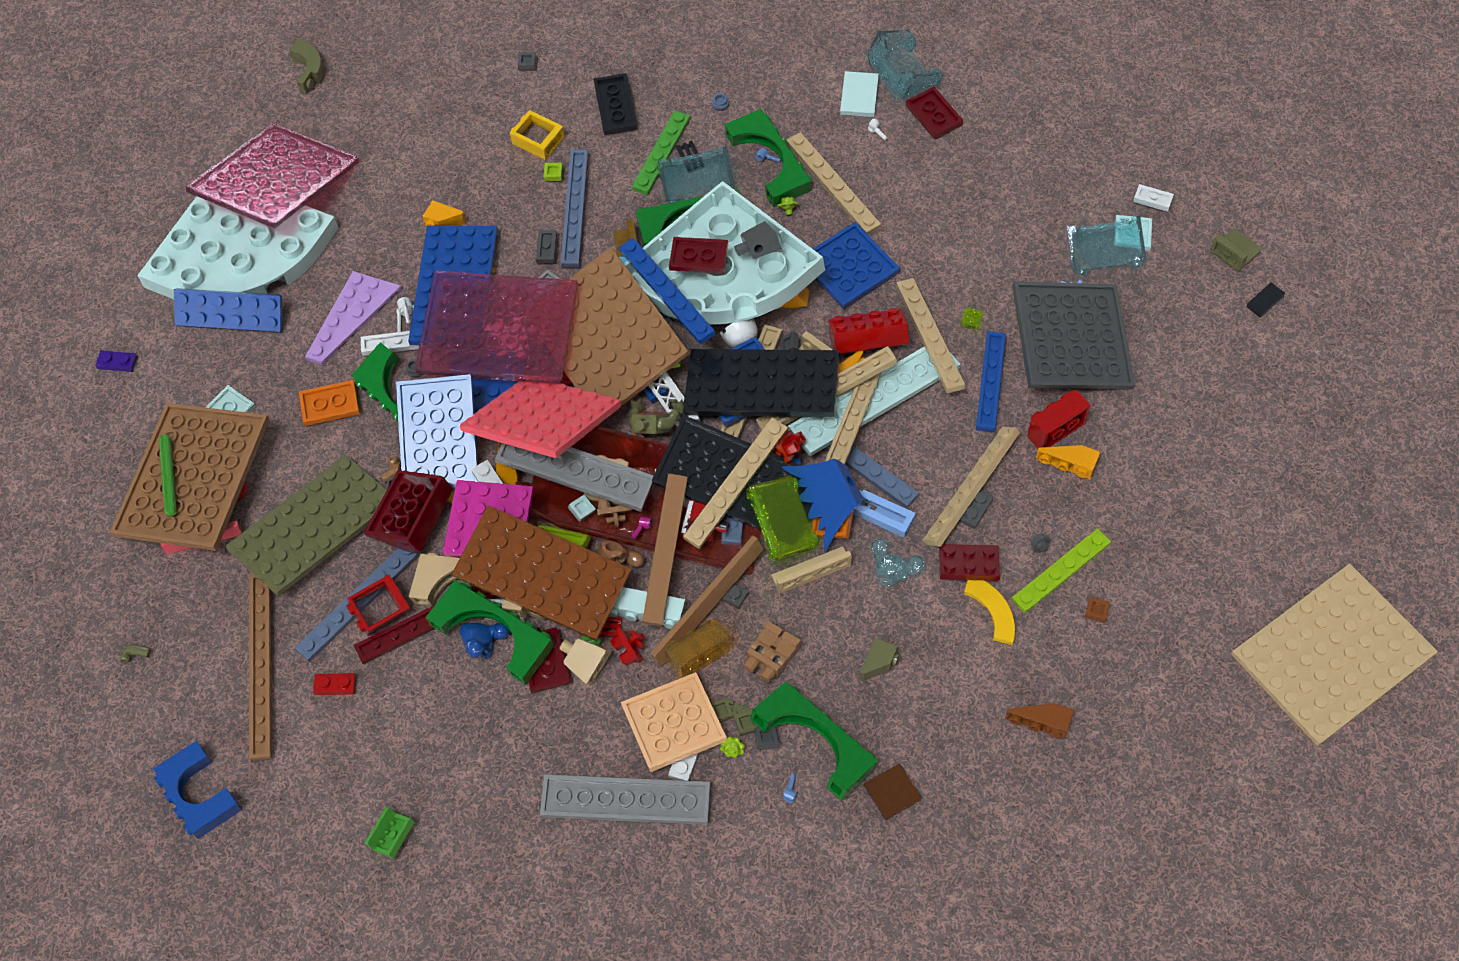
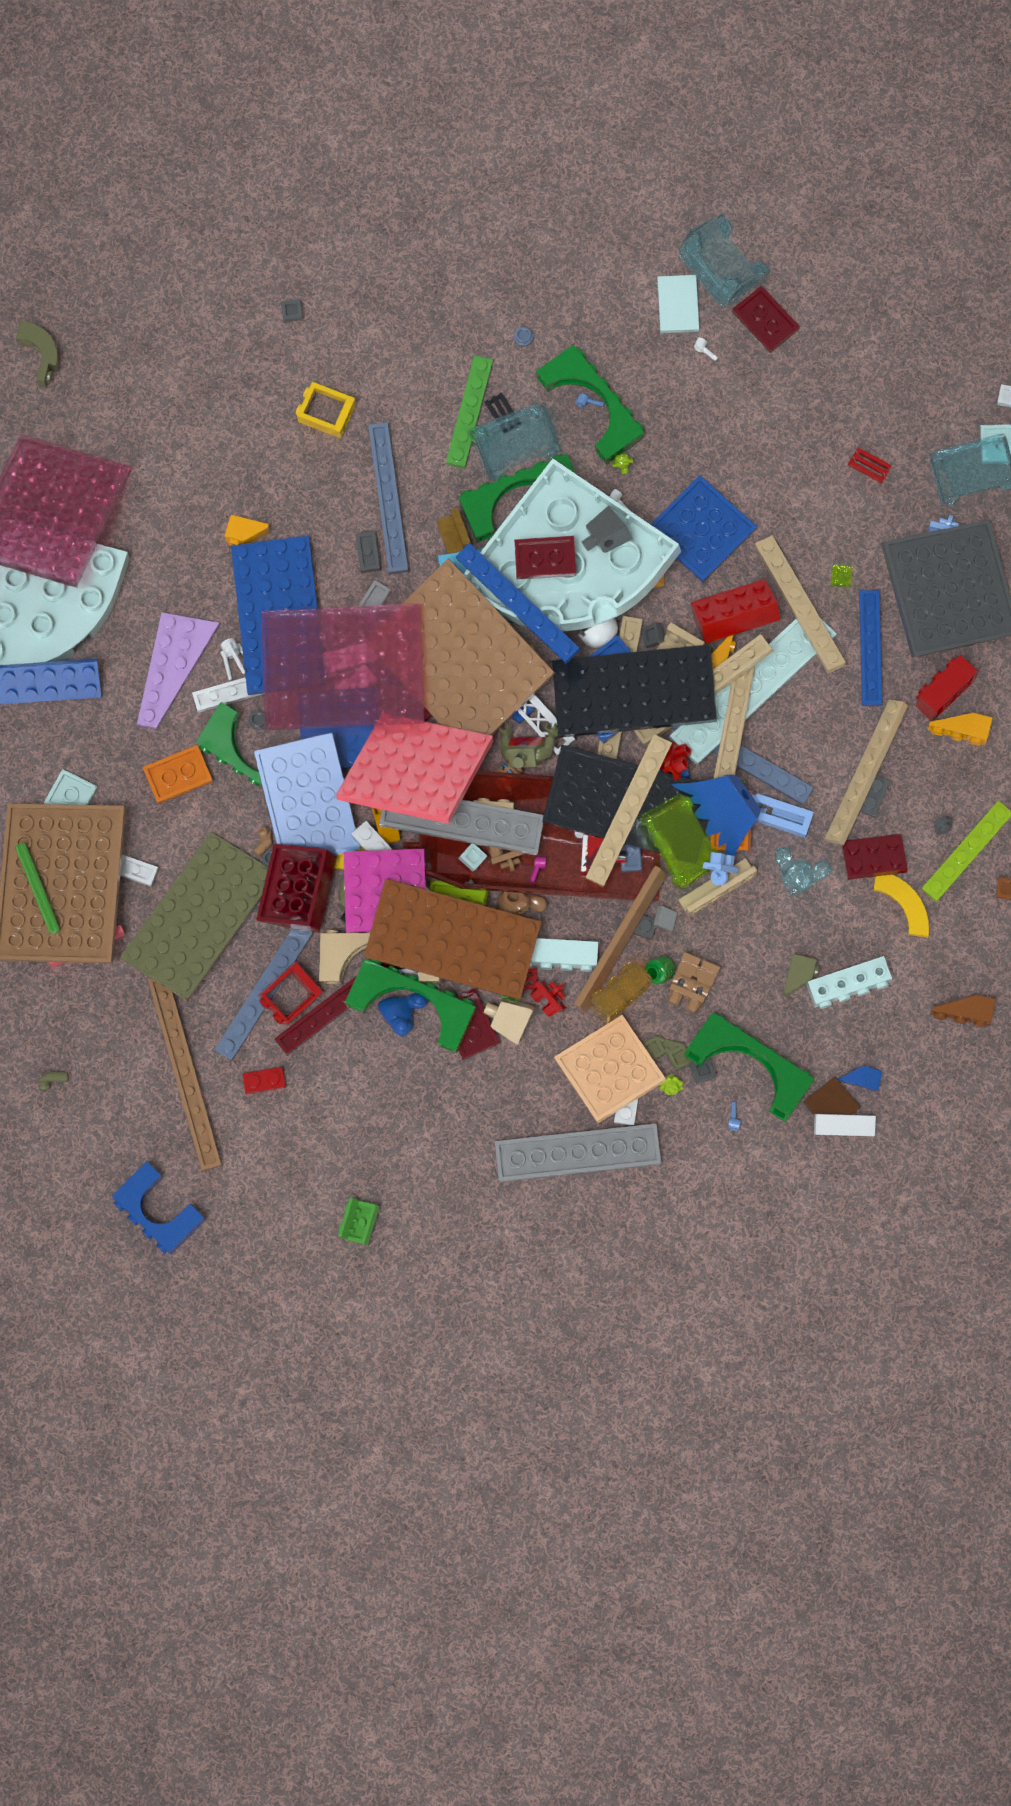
camera: 10 degrees left, 15 degrees up
(267, 478) = (138, 871): none -> white plate
(553, 171) = (354, 455): lime plate -> none
(615, 104) = (405, 355): black plate -> none
(664, 550) = (569, 893): medium nougat tile -> none
(741, 634) = (660, 969): none -> green head
(755, 589) = (665, 918): none -> light grey tile
(816, 546) = (721, 865): none -> light blue hips
(833, 183) = (667, 426): tan plate -> none
(902, 812) = (844, 1125): none -> white tile
(927, 674) = (848, 982): none -> light aqua brick
(928, 768) = (863, 1077): none -> blue slope
(1013, 232) = (886, 466): none -> red tile

